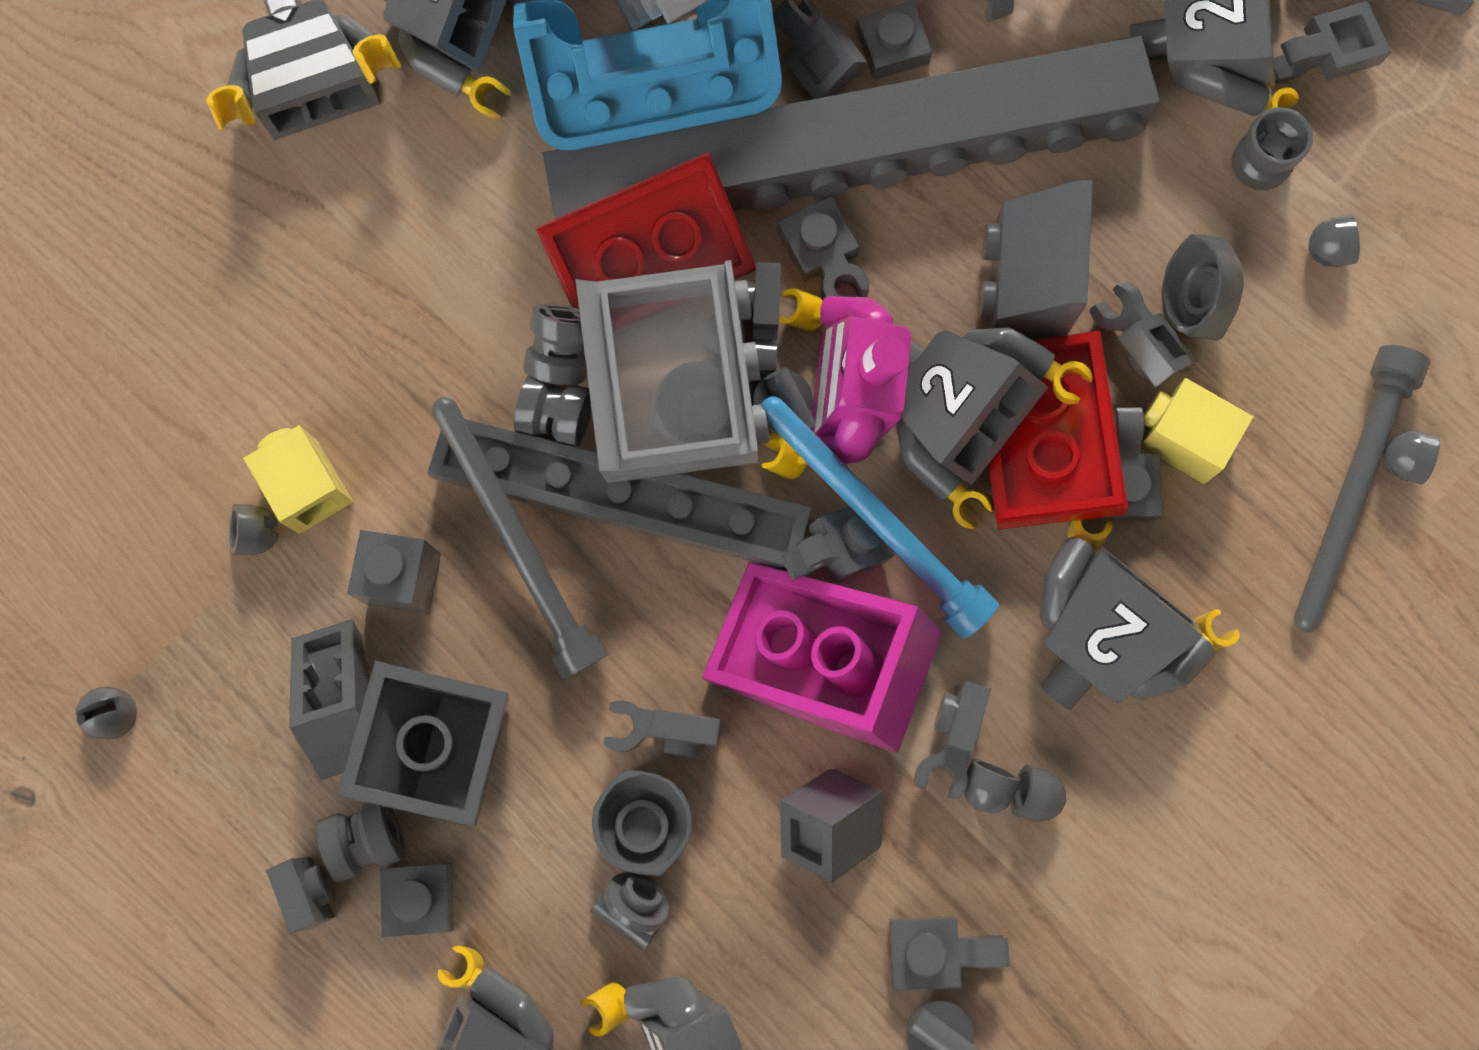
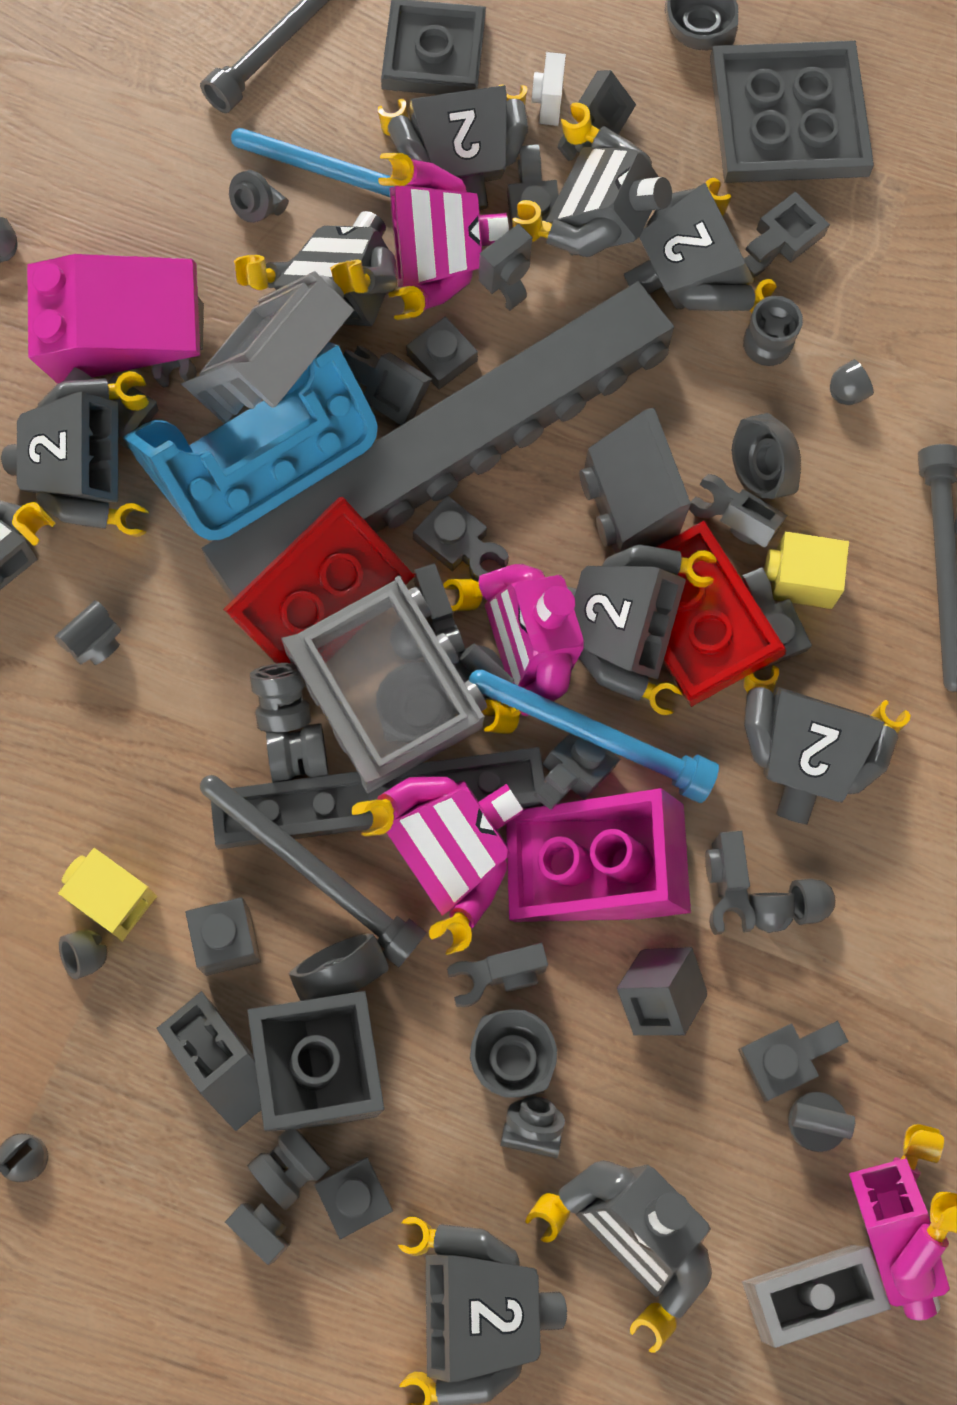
camera: 30 degrees left, 5 degrees down
(394, 201) = (90, 635): none -> dark grey plate
(499, 656) = (340, 968): none -> dark grey hat
(664, 571) = (447, 845): none -> torso

